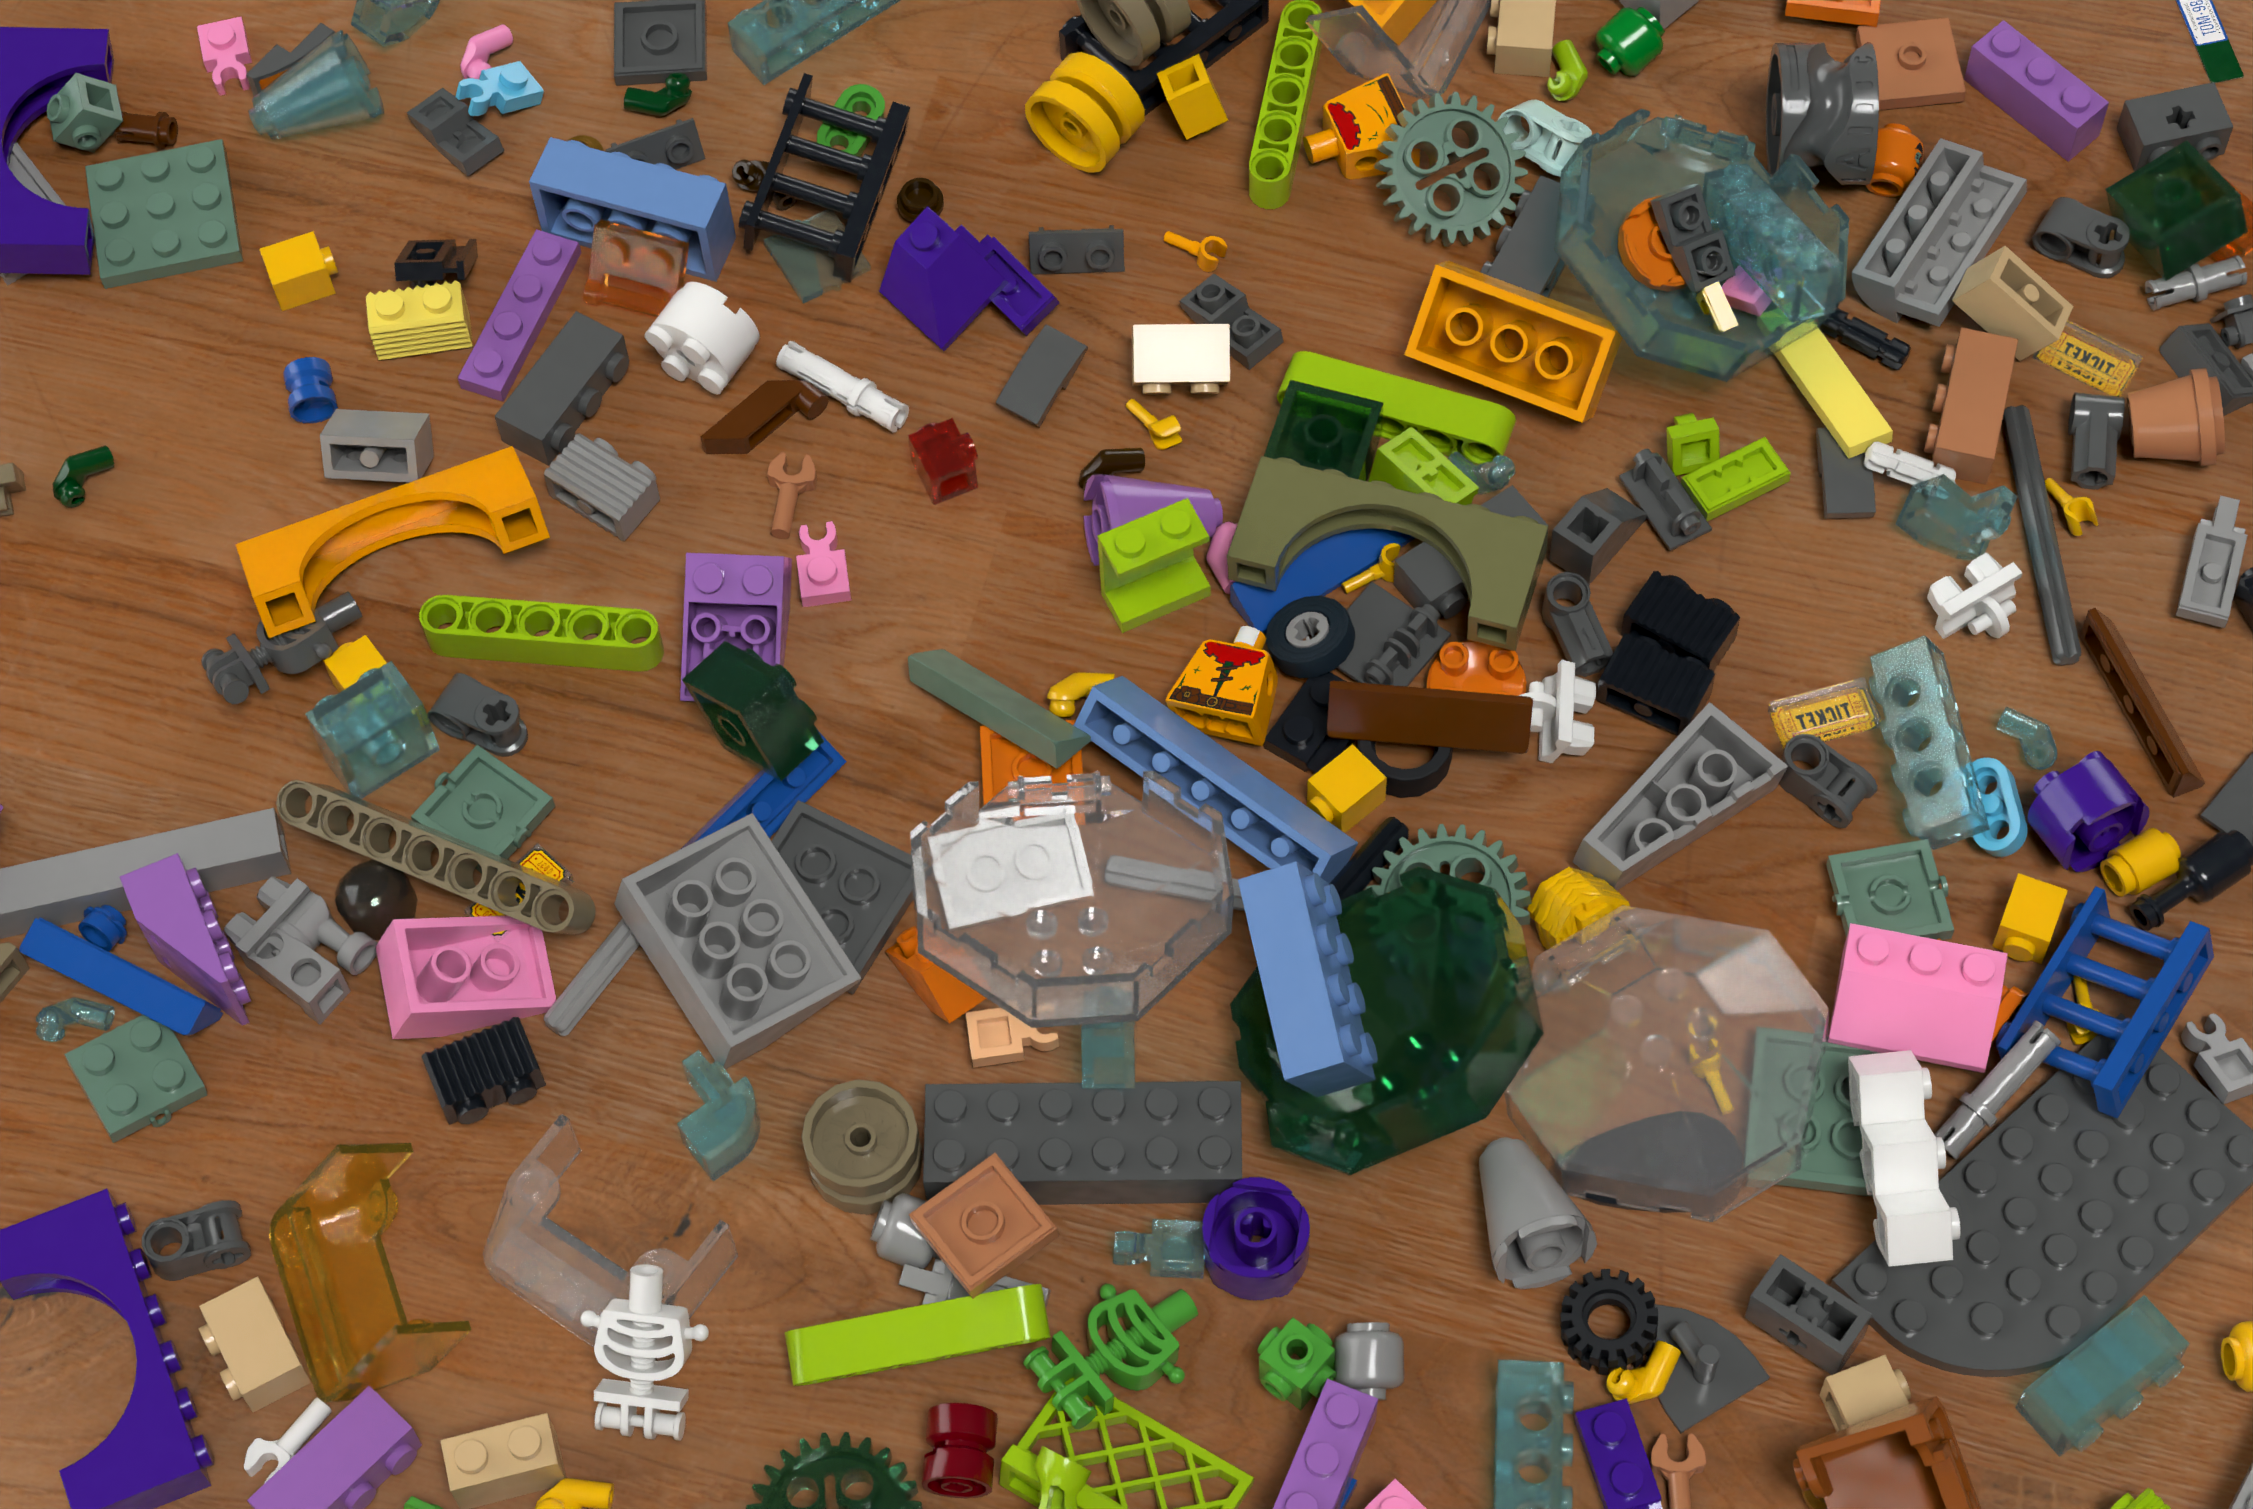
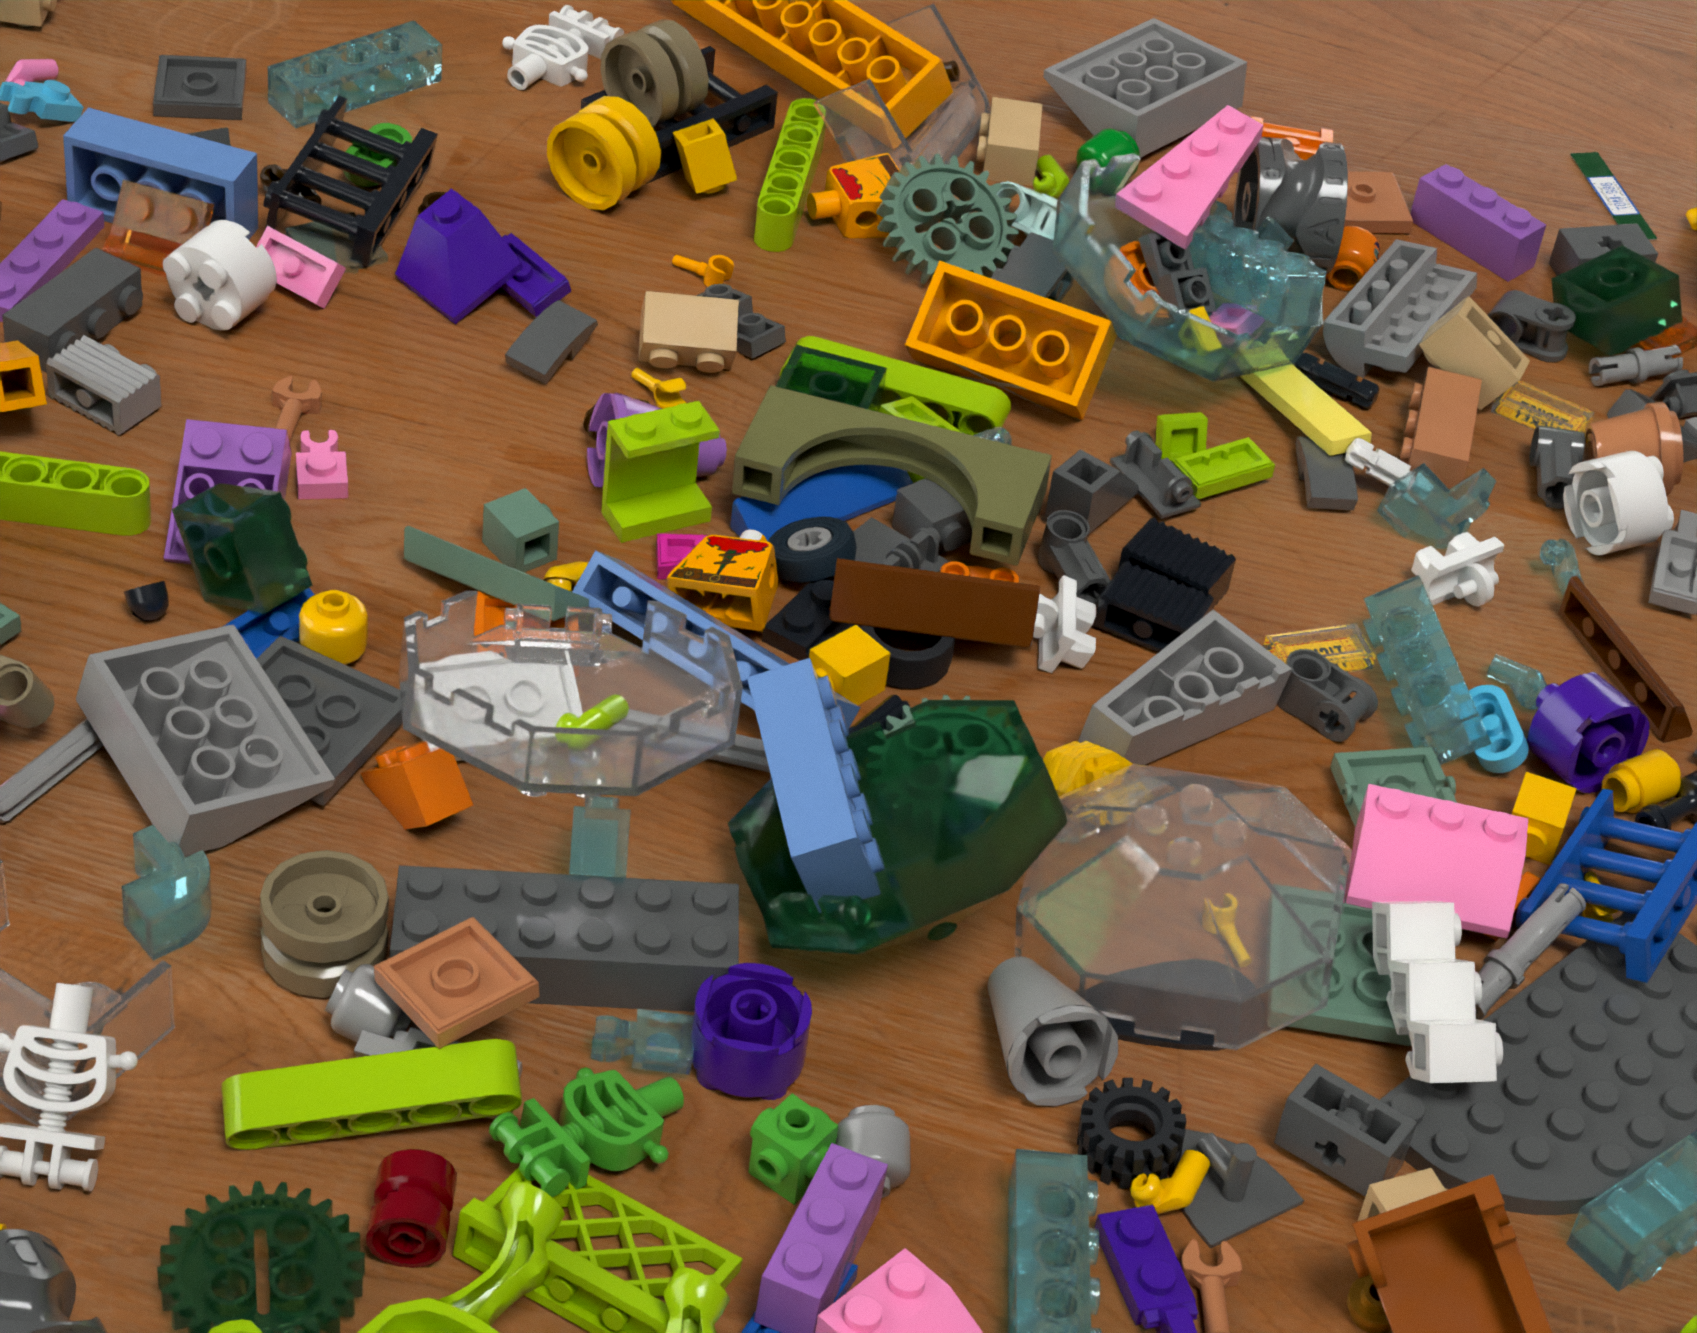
camera: 10 degrees left, 20 degrees down
(660, 102) = (211, 119): dark green arm -> none
(669, 760) = (148, 601): none -> black hinge
(762, 414) = (271, 350): reddish brown piece -> none
(778, 301) = (302, 268): none -> bright pink plate
(847, 787) = (334, 625): none -> yellow head
(857, 394) = (368, 340): white pin -> none
(944, 460) = (450, 392): clear red brick -> none
(1000, 1037) = (486, 846): light nougat plate -> none
(1021, 639) = (520, 531): none -> sand green brick
(1076, 251) = (591, 255): dark grey hinge -> none
(1103, 904) = (601, 716): none -> lime arm
(1177, 646) = (672, 550): none -> dark pink tile
(1218, 551) = (721, 487): bright pink arm -> none
(1383, 569) = (883, 511): yellow hand -> none
(1699, 131) = (1185, 182): none -> bright pink wing
(2041, 536) = (1517, 538): dark grey axle -> none
(2075, 509) = (1548, 516): yellow hand -> none
(2087, 572) = (1563, 561): none -> clear light blue arm
(2150, 500) = (1618, 502): none -> white brick

